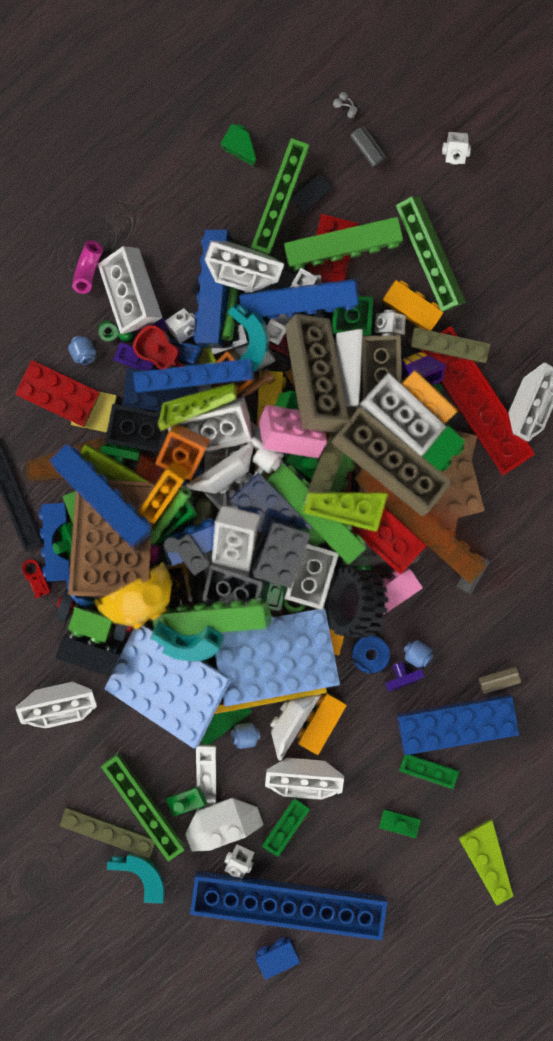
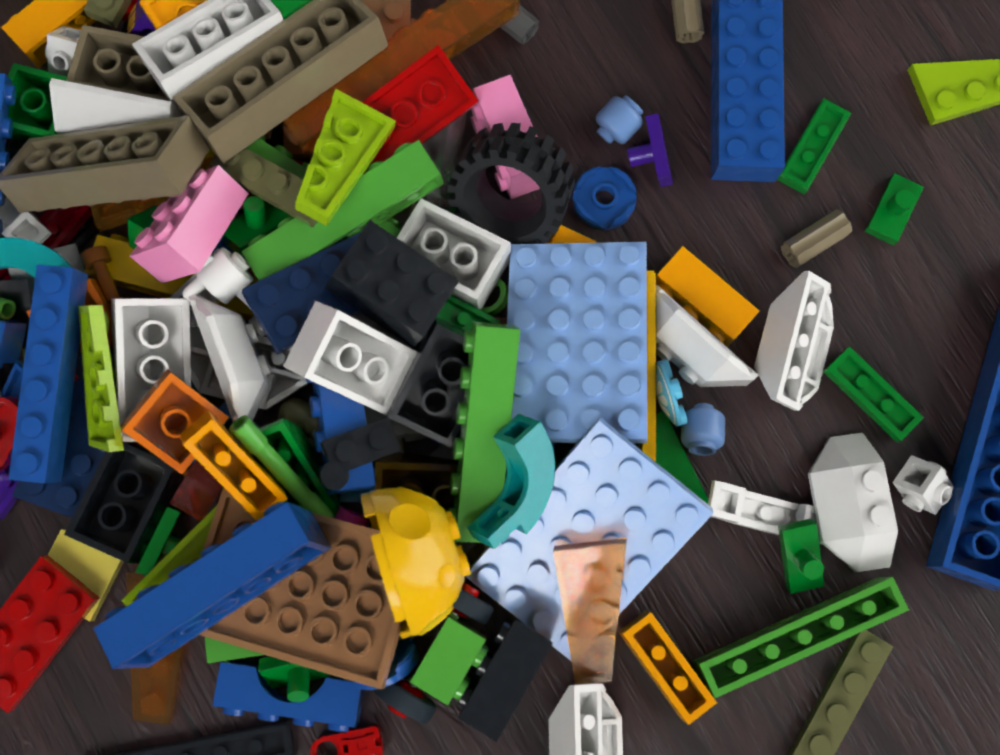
camera: 80 degrees left, 10 degrees down
(112, 738) = (667, 667): none -> light orange brick
(137, 692) = (590, 598): none -> clear orange wing
(147, 871) = (914, 657): teal arch -> none
(259, 712) = (668, 392): none -> medium azure dish
(370, 781) = (816, 238): none -> dark tan axle

